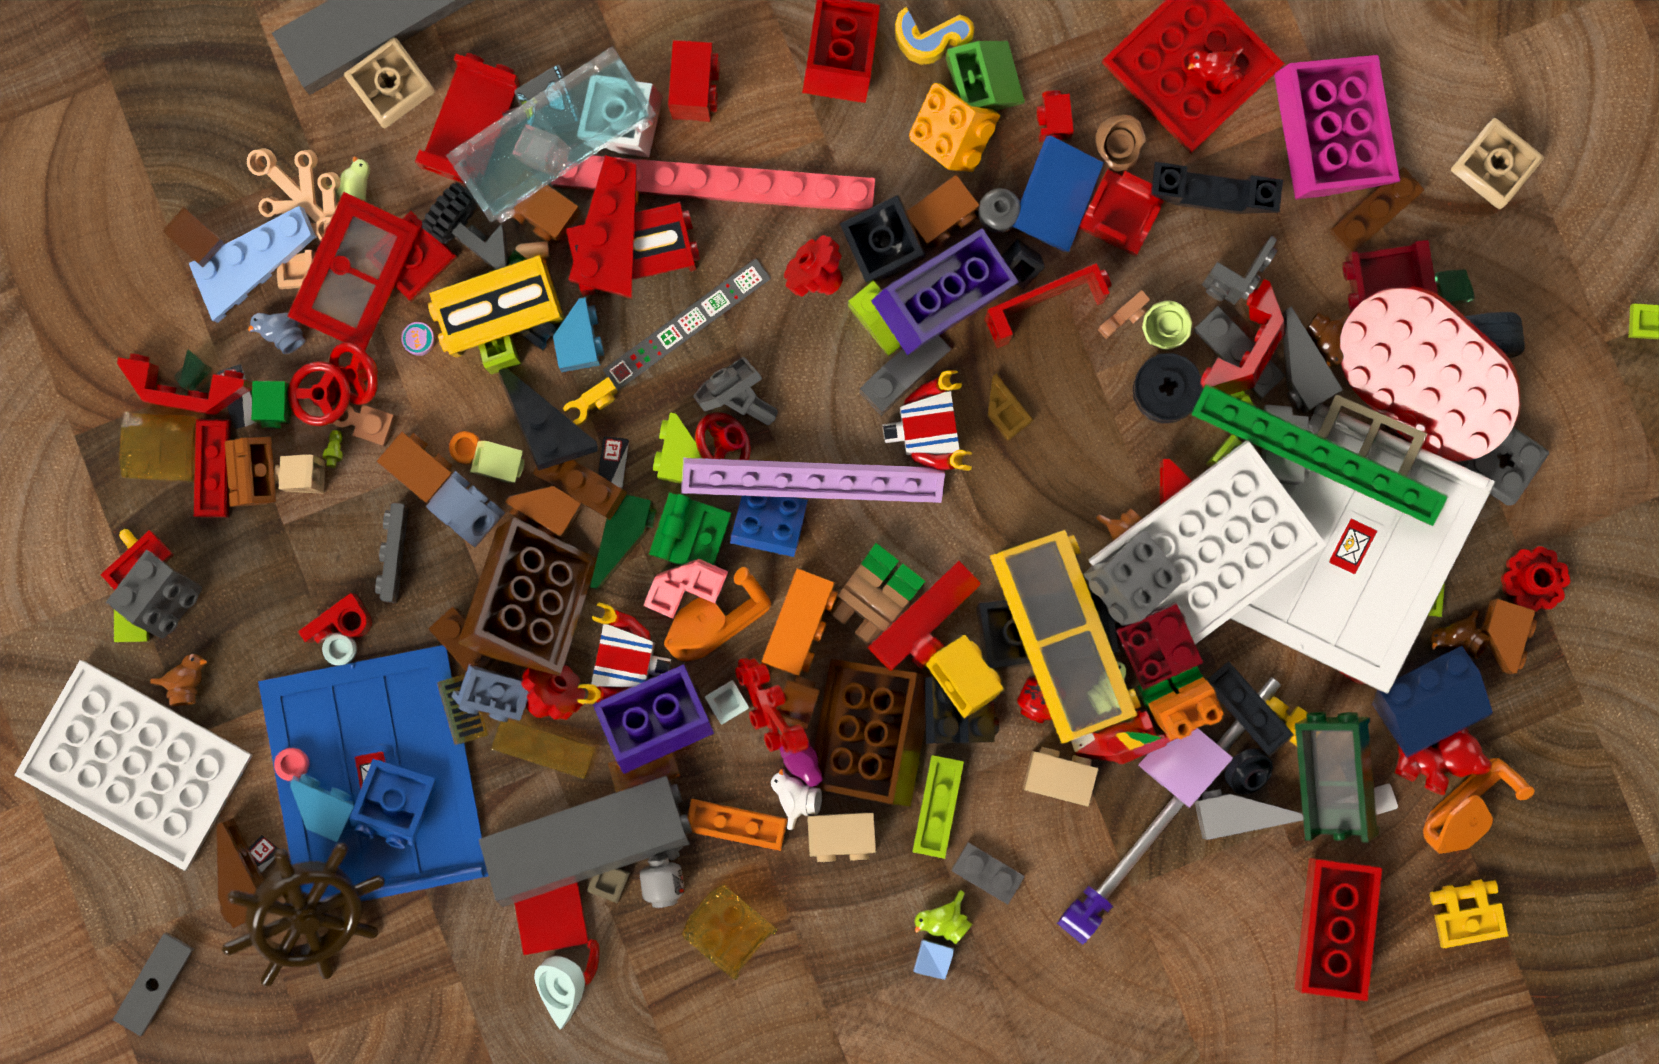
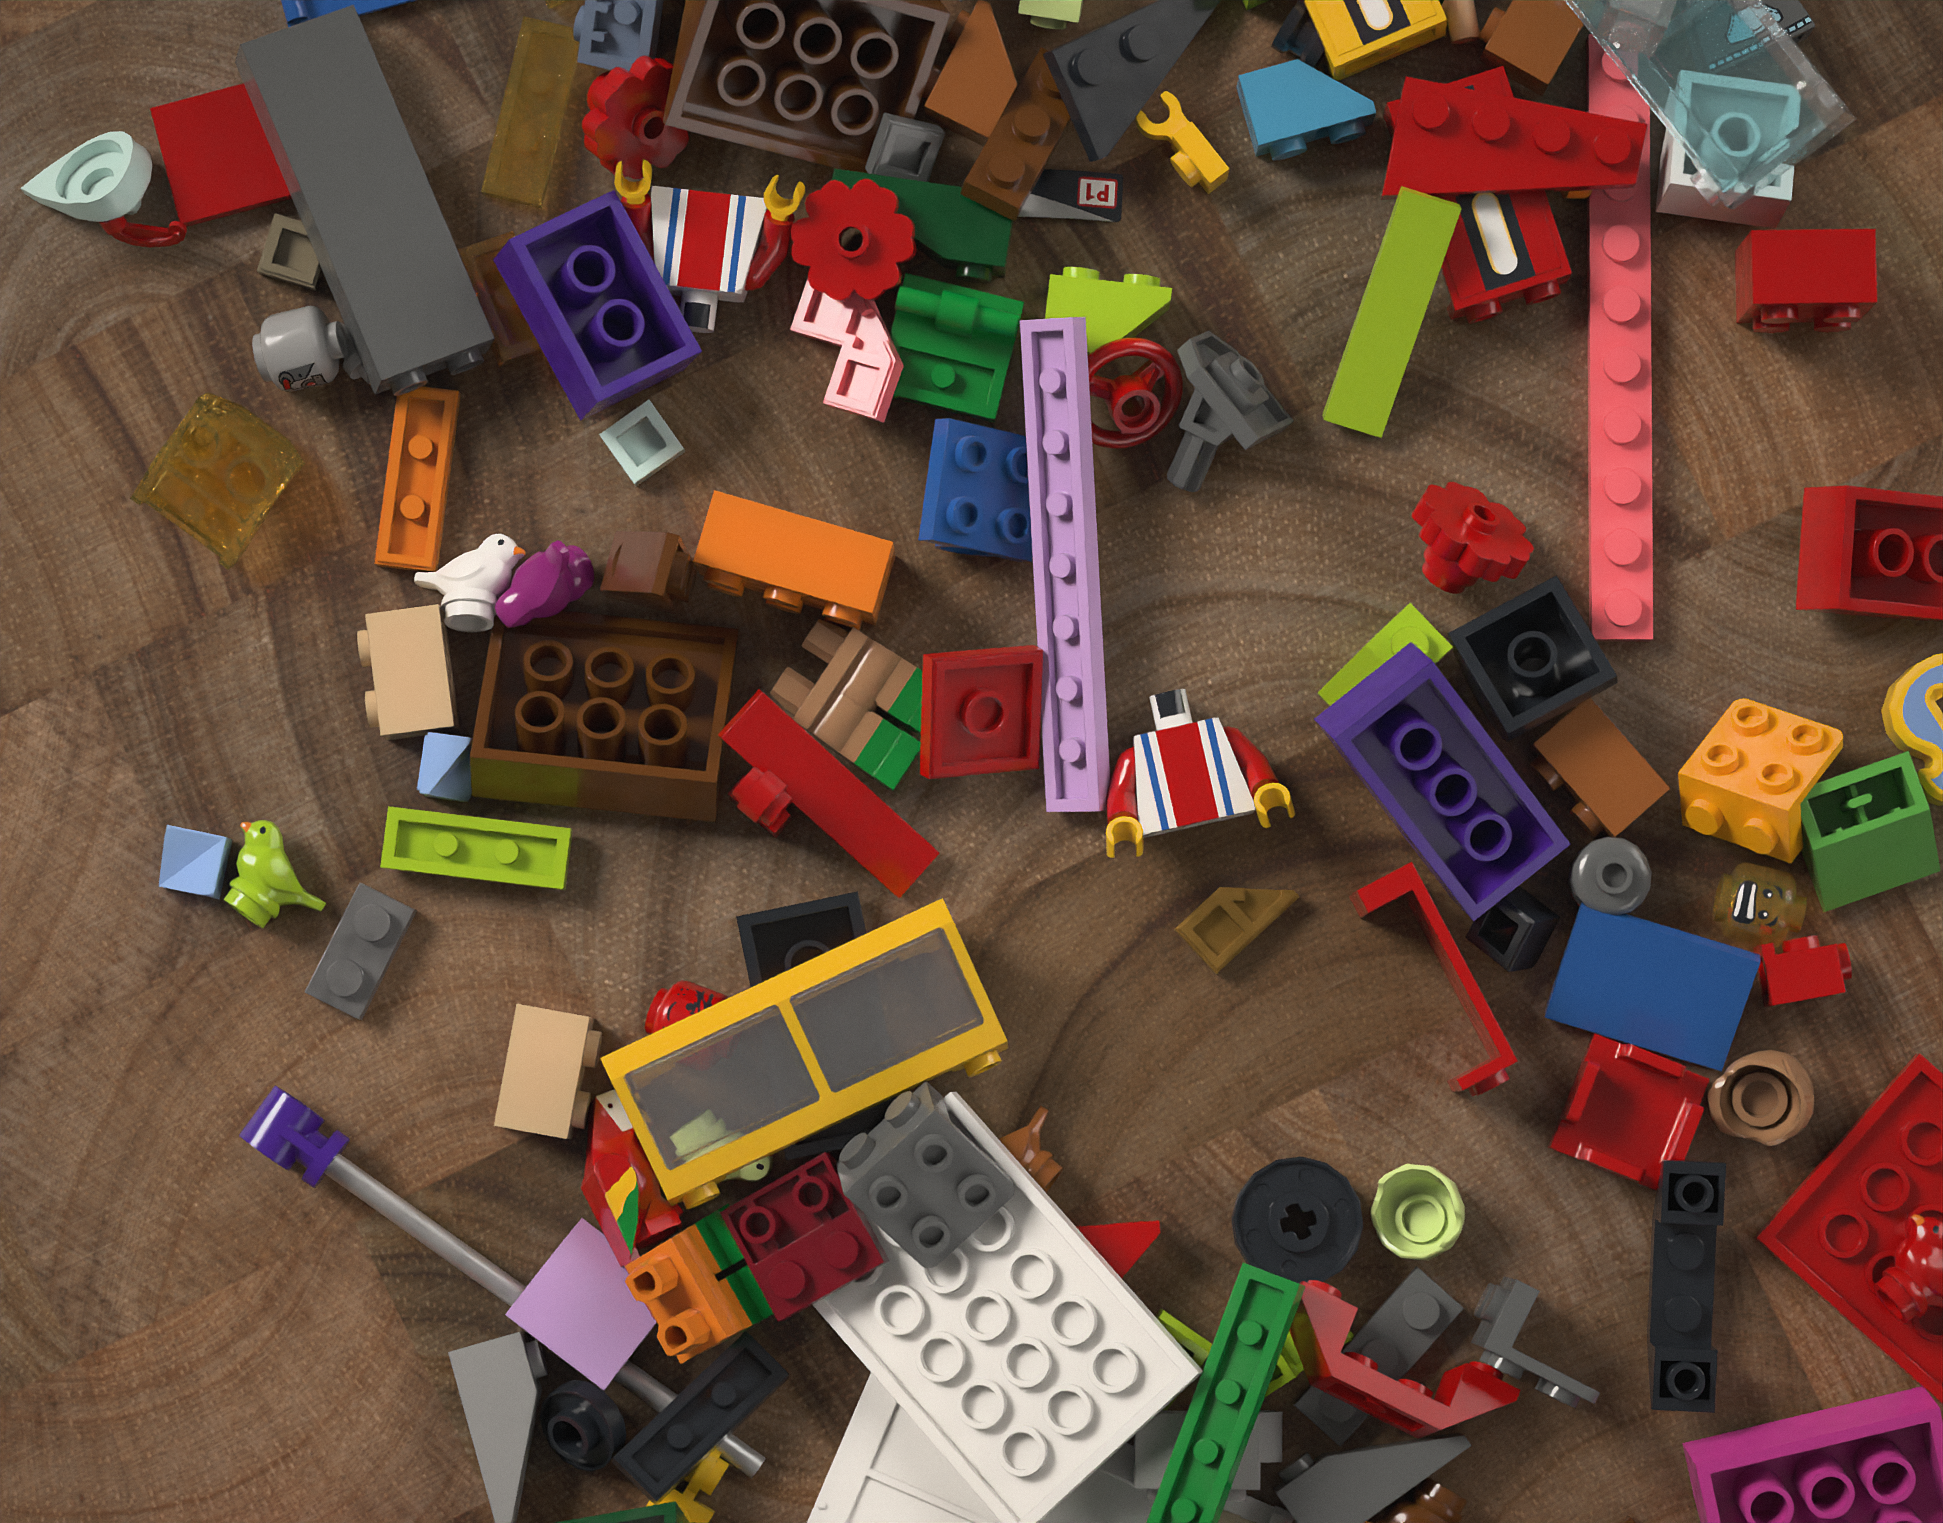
camera: 90 degrees right, 0 degrees up
(582, 549) = (905, 148): none -> dark grey tile
(618, 566) = (885, 240): none -> red plant
(686, 324) = (1337, 301): dark grey sticker -> none
(692, 298) = (1391, 311): none -> lime tile
(704, 627) = (774, 385): orange piece -> none
(765, 712) = (575, 554): red plant -> none
(887, 531) = (981, 711): none -> red tile
(893, 819) = (445, 767): none -> light blue slope
(902, 374) = (1283, 719): dark grey slope -> none
(947, 724) = (657, 874): black plate -> none
(965, 675) = (717, 873): yellow brick -> none
(1018, 136) = (1758, 905): none -> clear yellow head
(1132, 311) = (1439, 1143): nougat plate -> none

